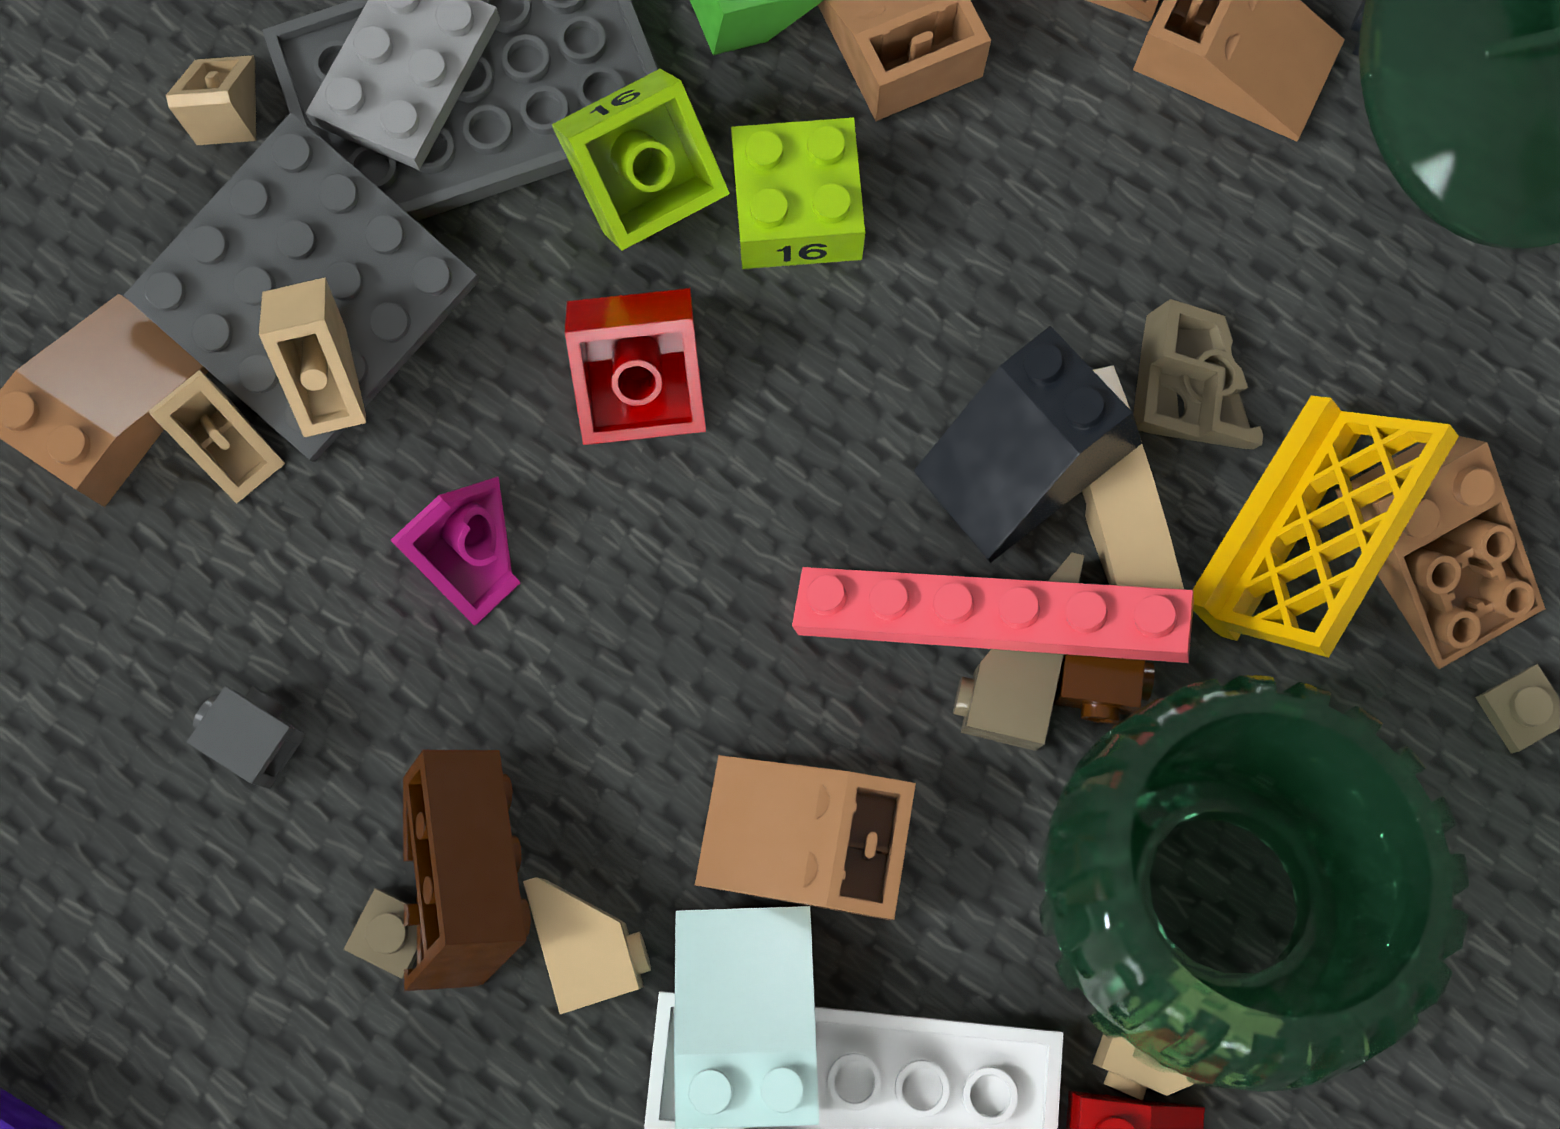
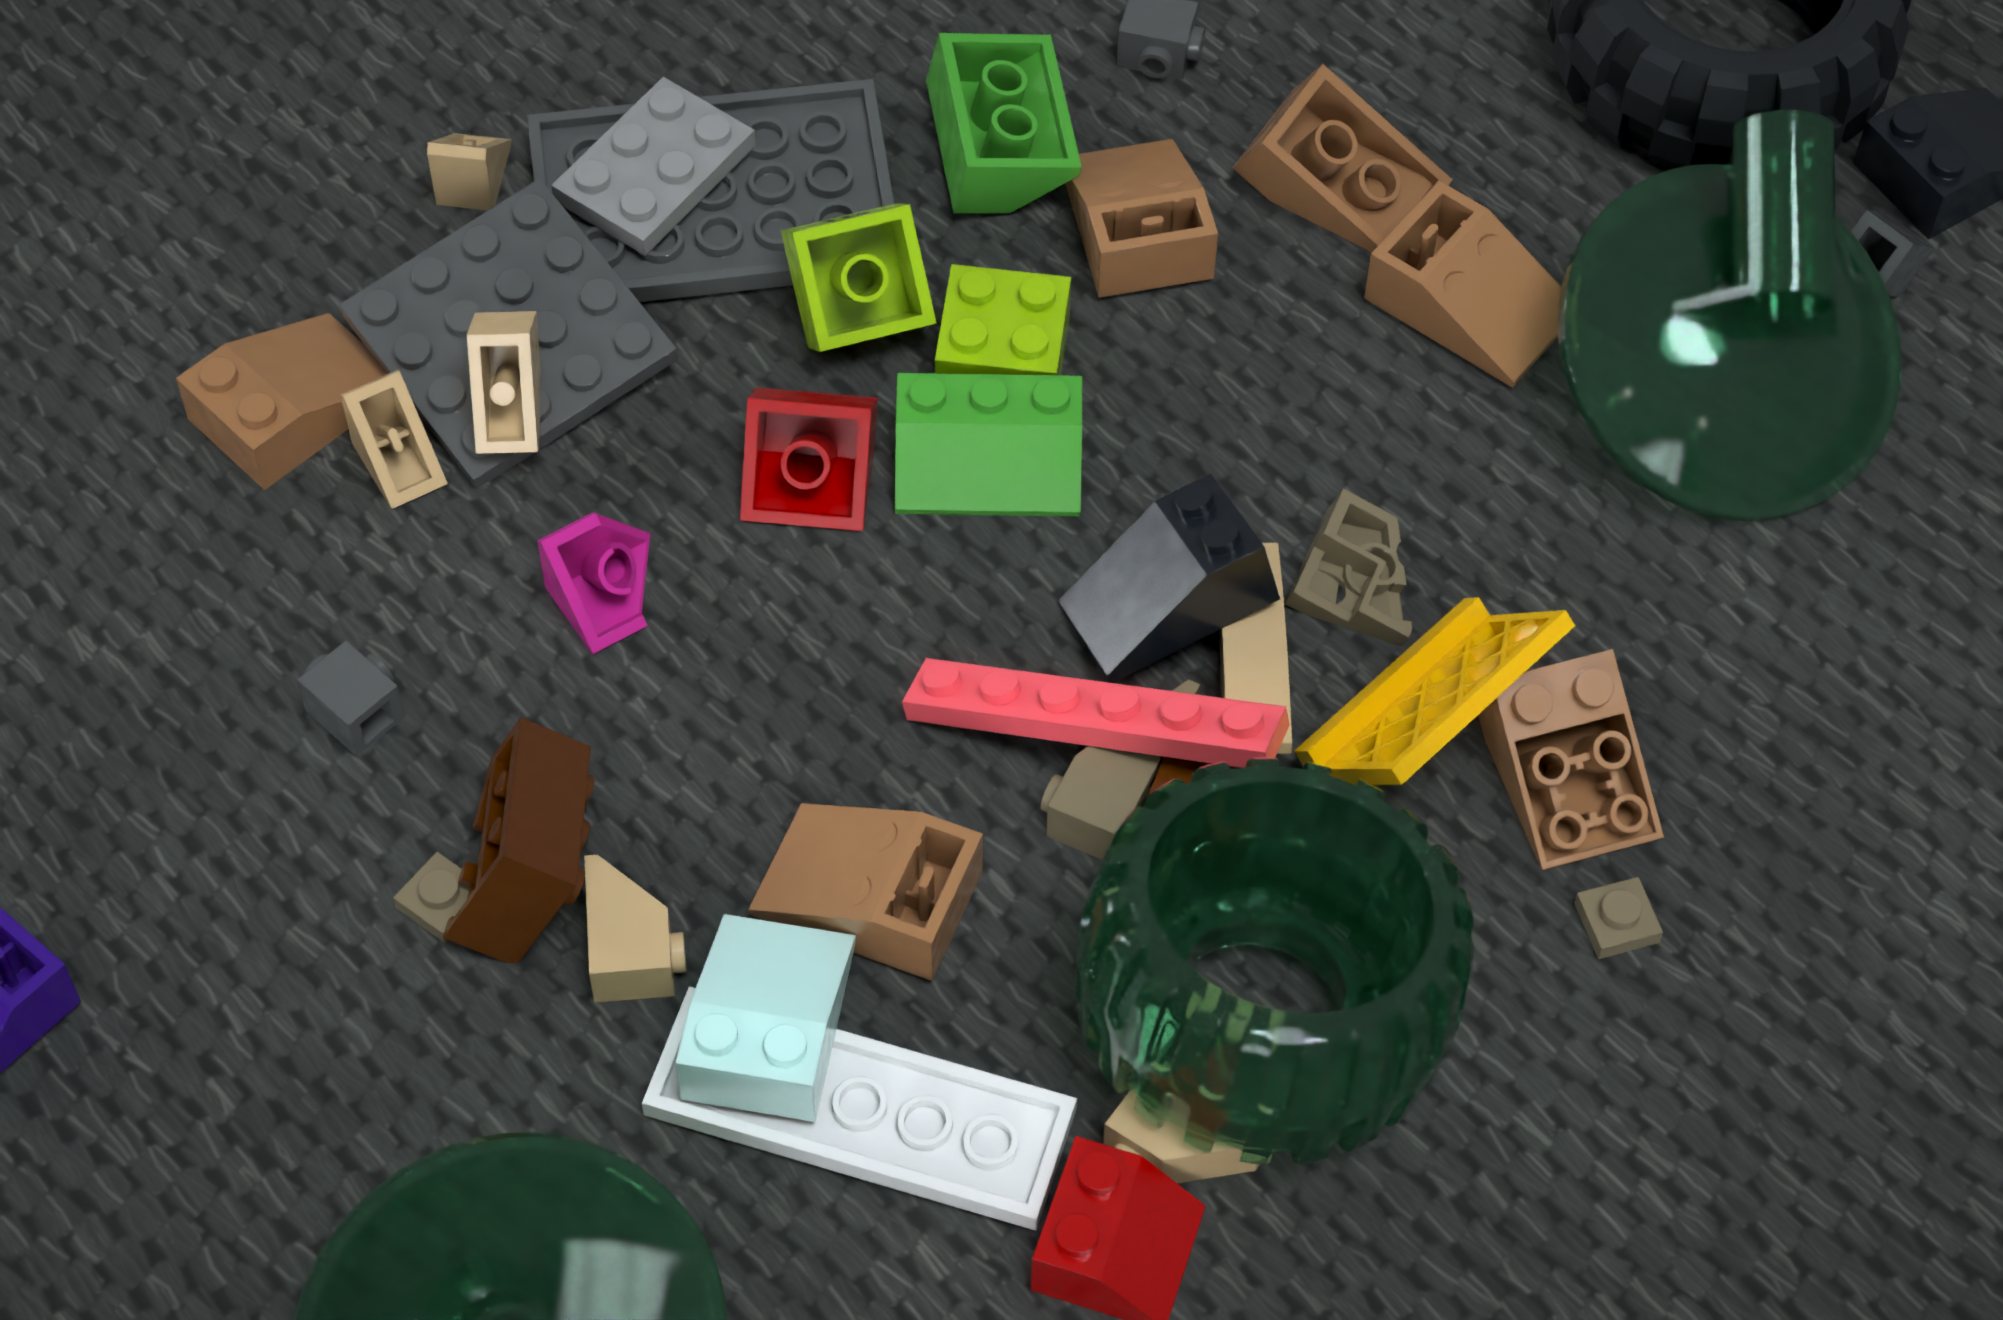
camera: 10 degrees right, 20 degrees down
(811, 316) = (988, 444): none -> bright green slope

